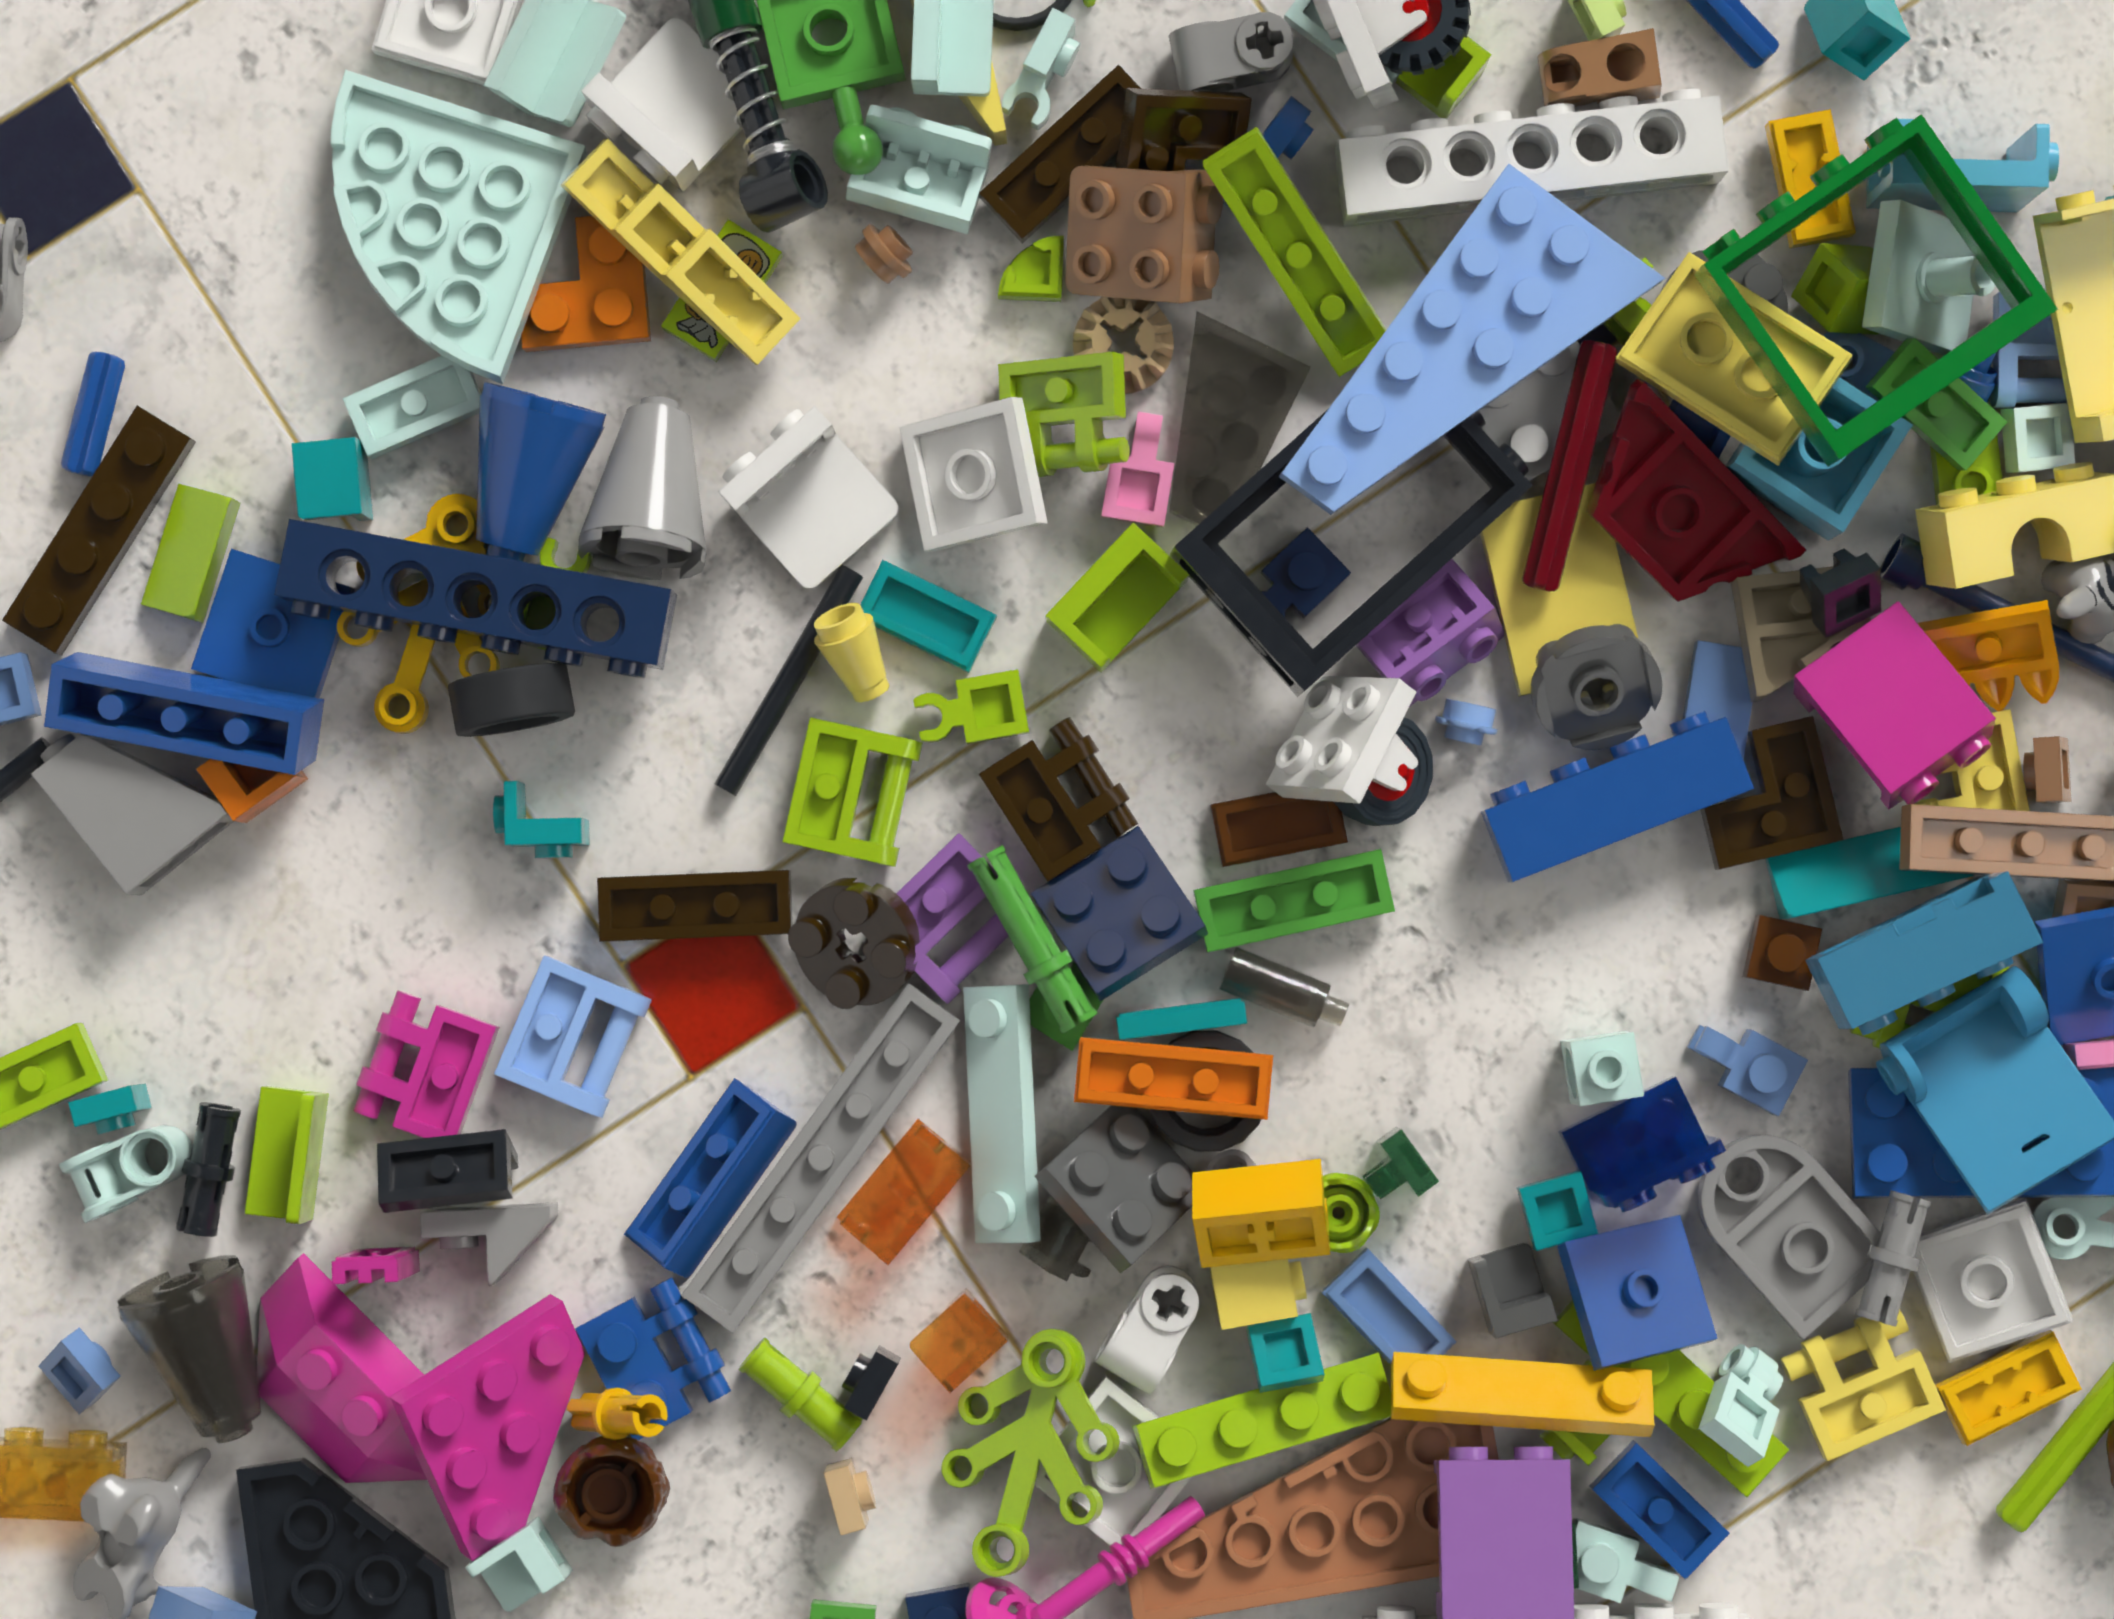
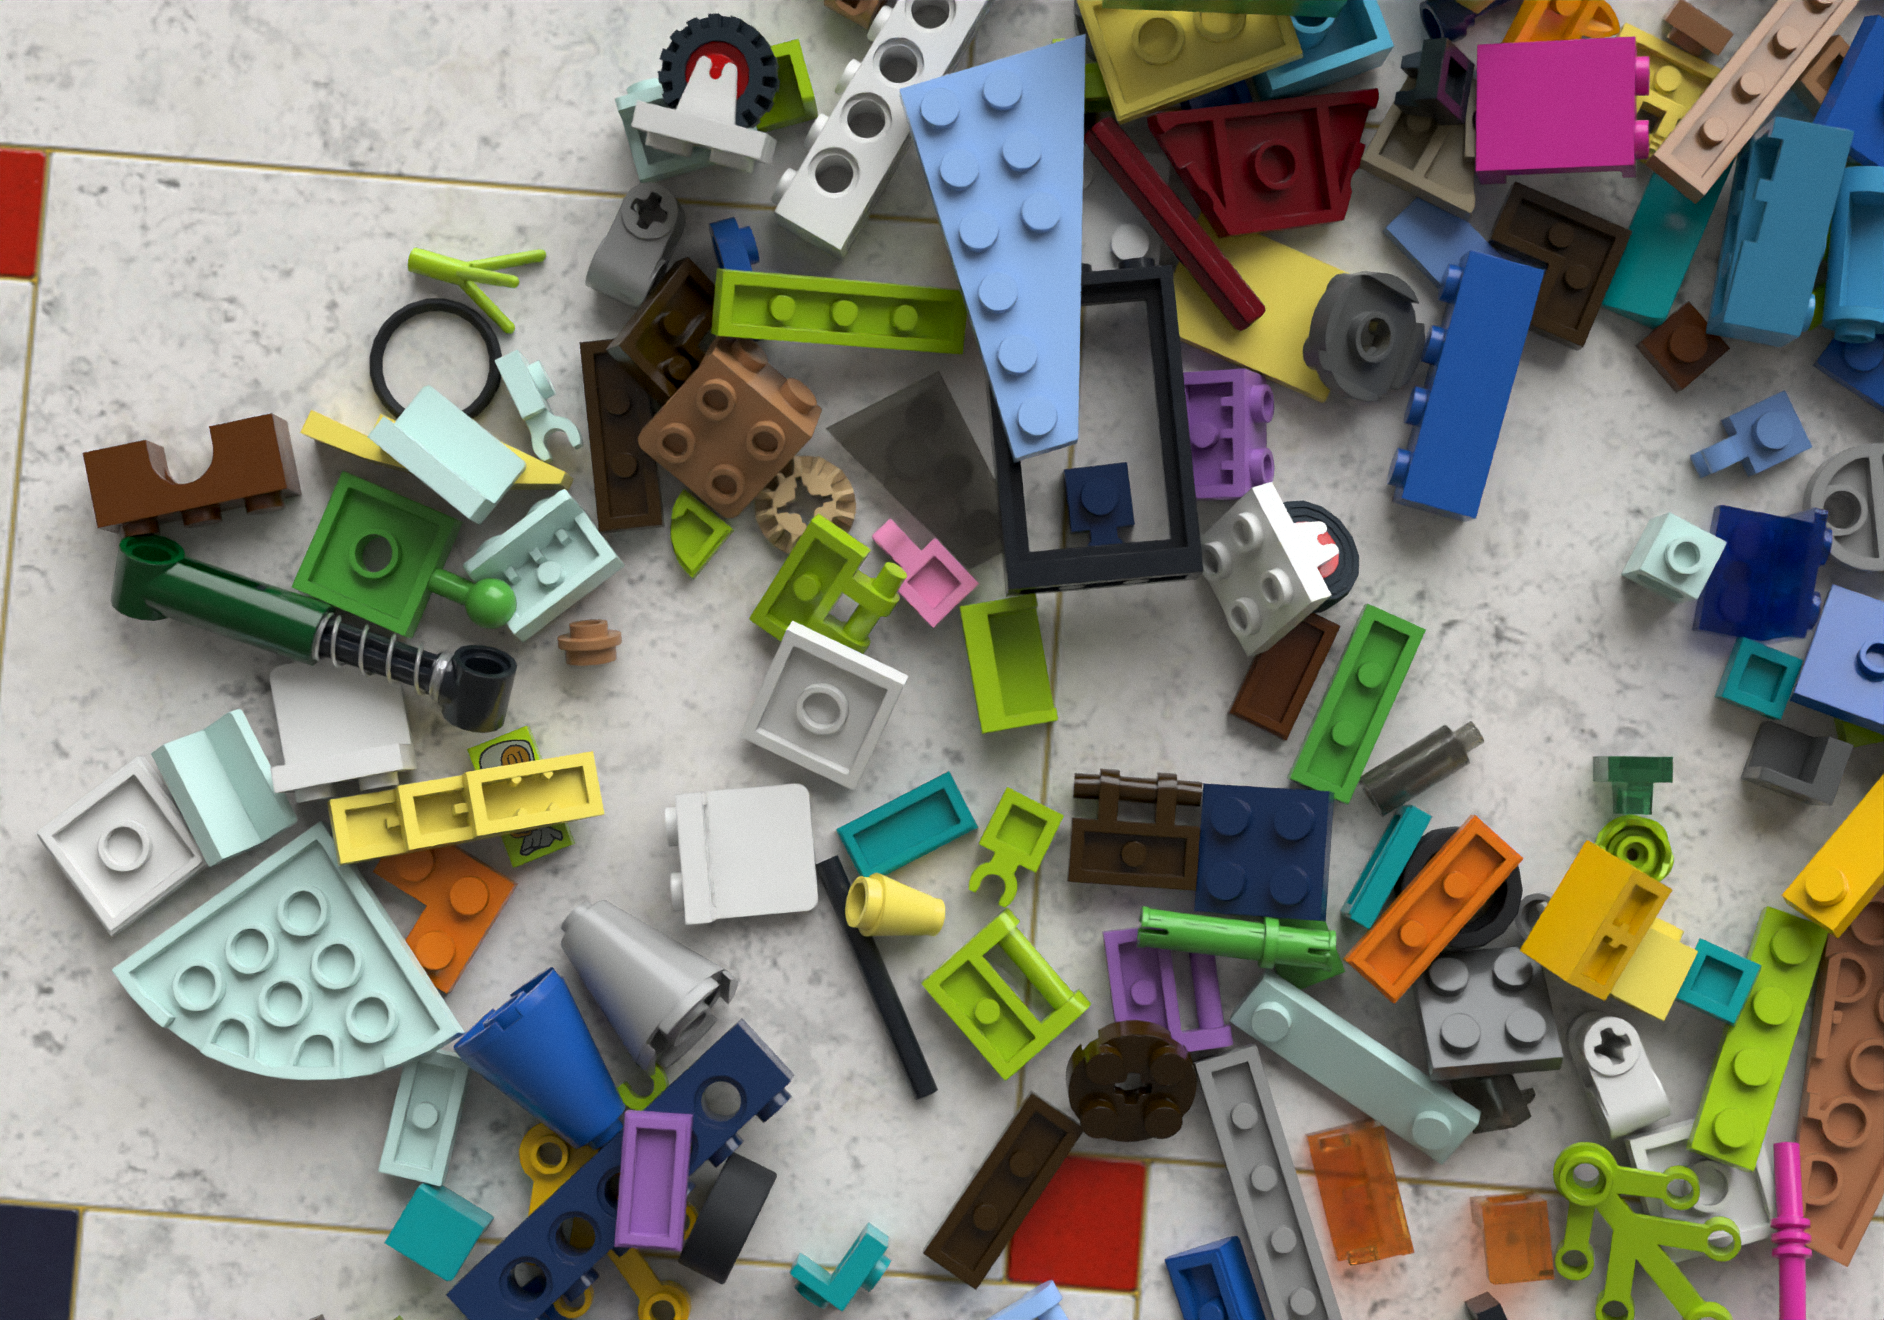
camera: 60 degrees left, 0 degrees up
(499, 614) = (653, 1180): none -> medium lavender tile
(1385, 1310) = (1737, 874): medium blue tile -> none
(1467, 721) = (1314, 458): light blue plate -> none

